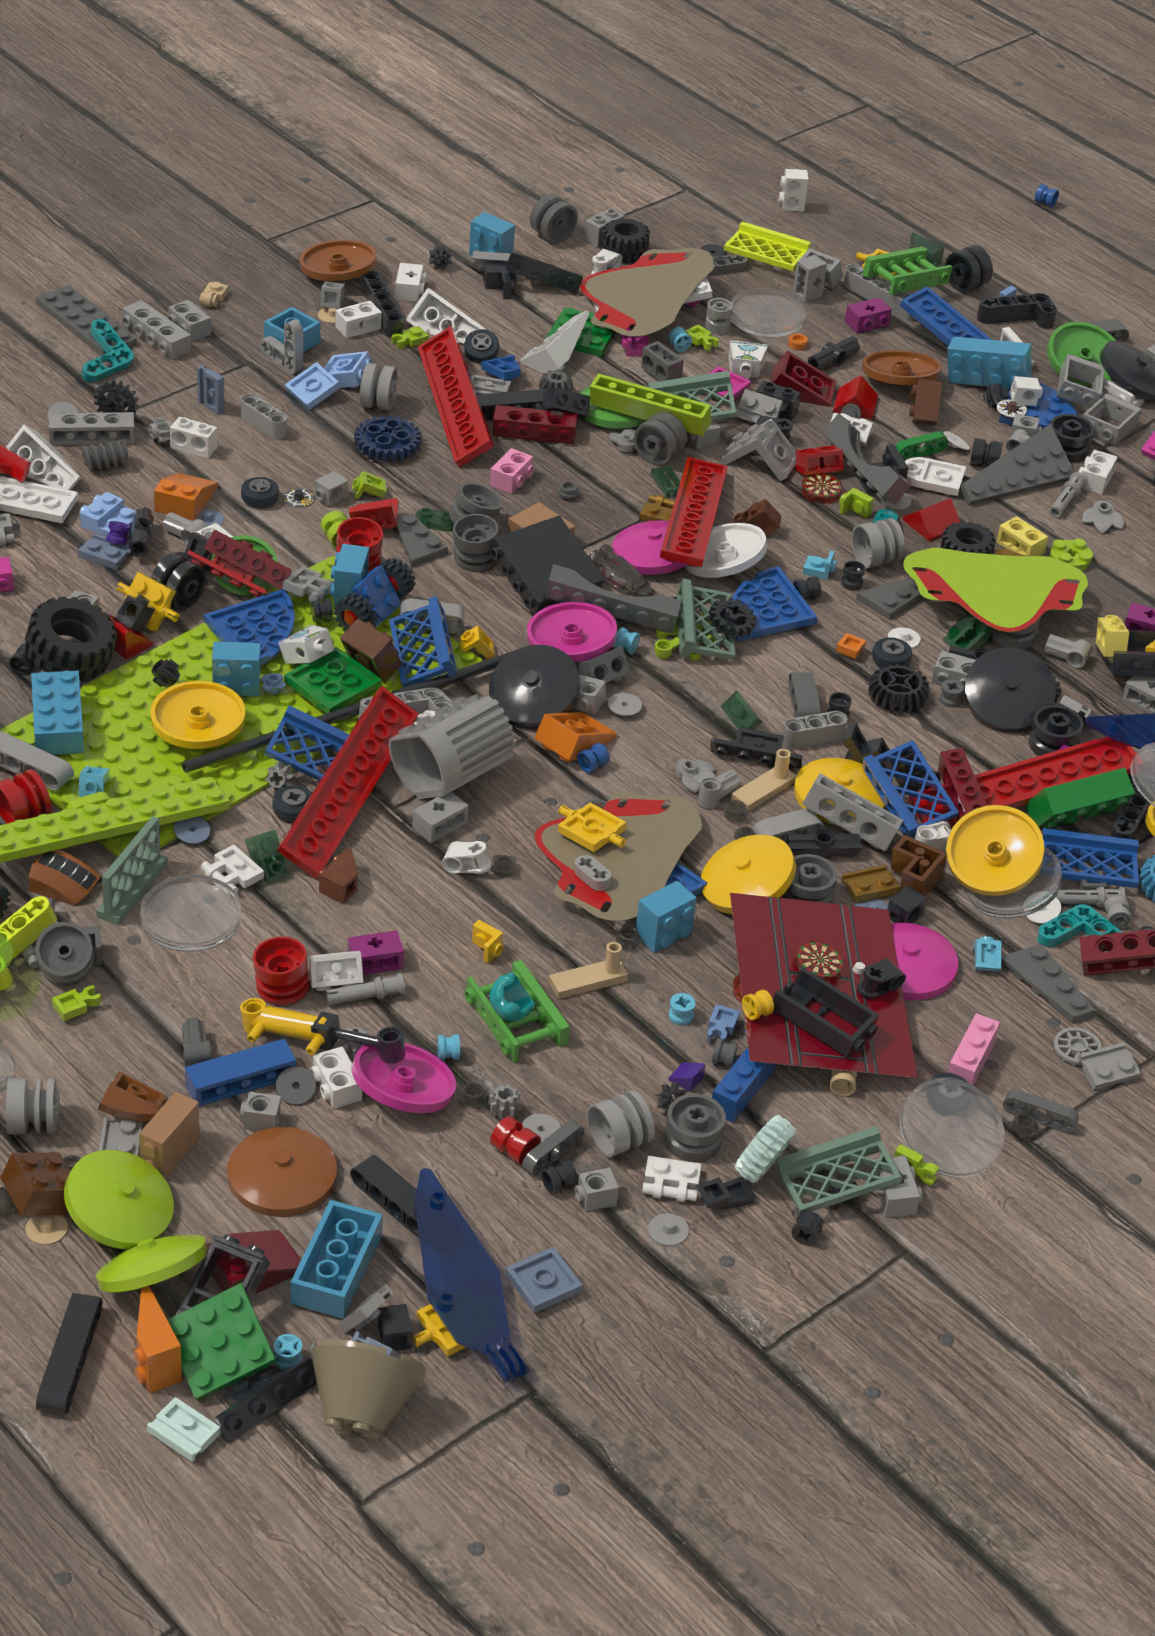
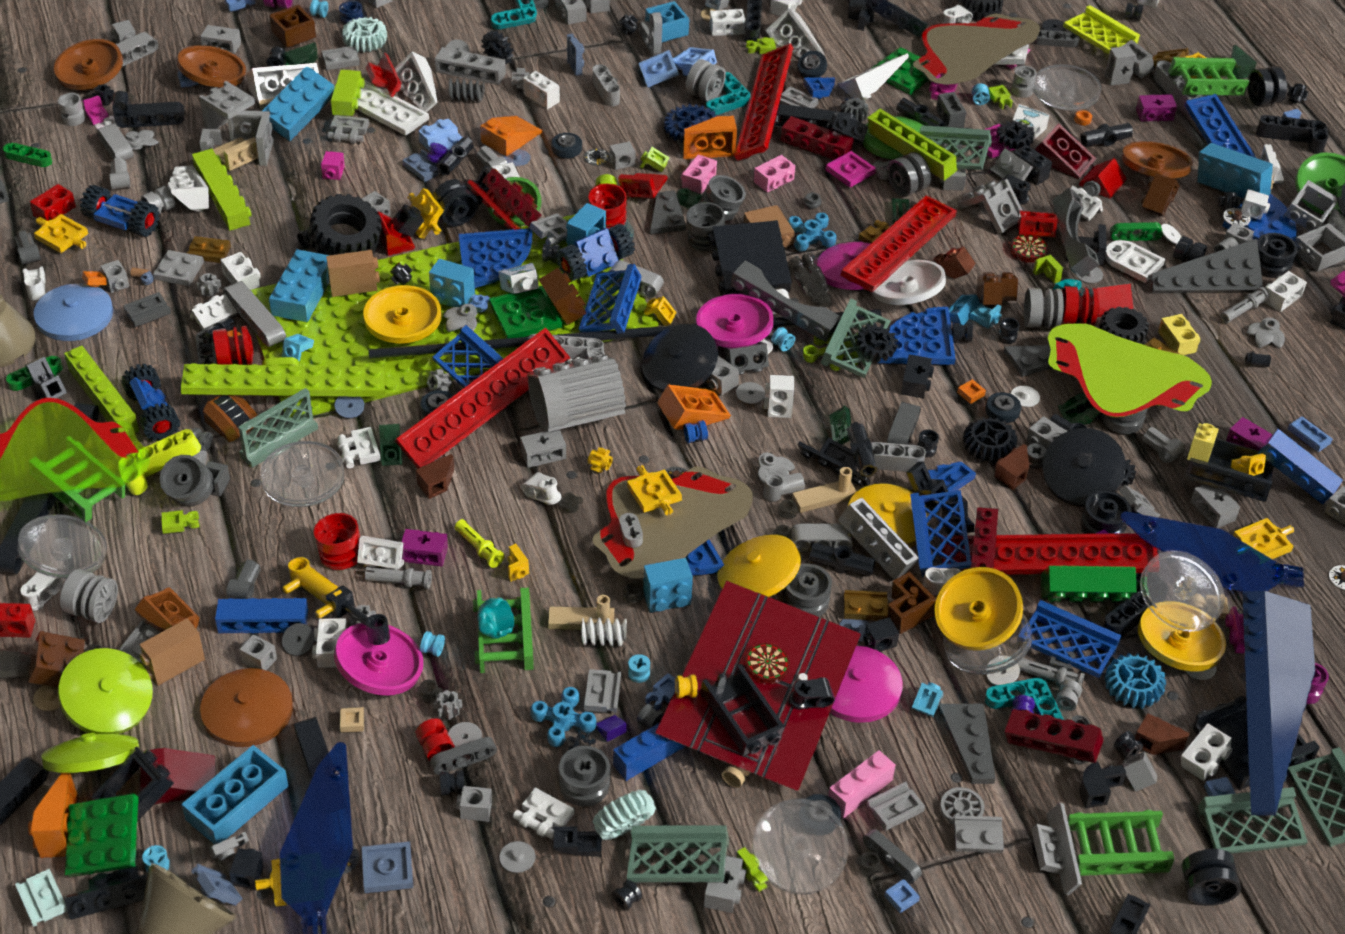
camera: 25 degrees right, 5 degrees up
(112, 684) = (352, 273): none -> medium nougat brick
(247, 344) = (628, 24): none -> black gear
(262, 706) = (458, 318): none -> light grey plate
(410, 1148) = (352, 719): none -> tan plate
(419, 398) = (738, 97): none -> teal beam
(425, 447) = (711, 138): none -> orange slope
(428, 489) = (698, 173): none -> bright pink brick
(440, 935) = (484, 548): none -> neon yellow pin
(510, 812) = (600, 460): none -> yellow gear
(589, 448) = (850, 169): none -> dark pink plate
(590, 523) = (812, 232): none -> dark azure gear
(620, 1123) = (523, 753): light grey wheel -> none
(624, 981) = (604, 631): none -> white piece
(629, 372) = (919, 113): none -> black piece
(634, 1075) = (563, 716): none -> dark azure gear
(657, 1042) = (602, 691): none -> light grey plate
(664, 698) = (780, 396): none -> white brick
(746, 373) = (1015, 134): none -> black gear
(784, 728) = (862, 449): none -> black piece
(787, 219) = (1137, 11): none -> black wheel
(788, 644) = (916, 376): none -> black brick
(792, 563) = (963, 307): none -> dark azure slope
(818, 535) = (997, 288): none -> reddish brown brick
(855, 257) = (1169, 54): none -> pearl gold plate
(885, 728) = (954, 475): none -> blue wing
(918, 529) = (1082, 307): none -> red wheel
(938, 710) = (1013, 468): none -> copper slope
(1000, 270) = (1297, 93): none -> black gear
(1016, 1064) = (895, 806): none -> light grey plate
(1072, 552) = (1226, 355): lime plate -> none
(1072, 1144) = (902, 896): none -> medium blue plate
(1078, 930) = (1023, 702): none -> dark purple wheel
(1105, 545) = (1257, 359): none -> black pin

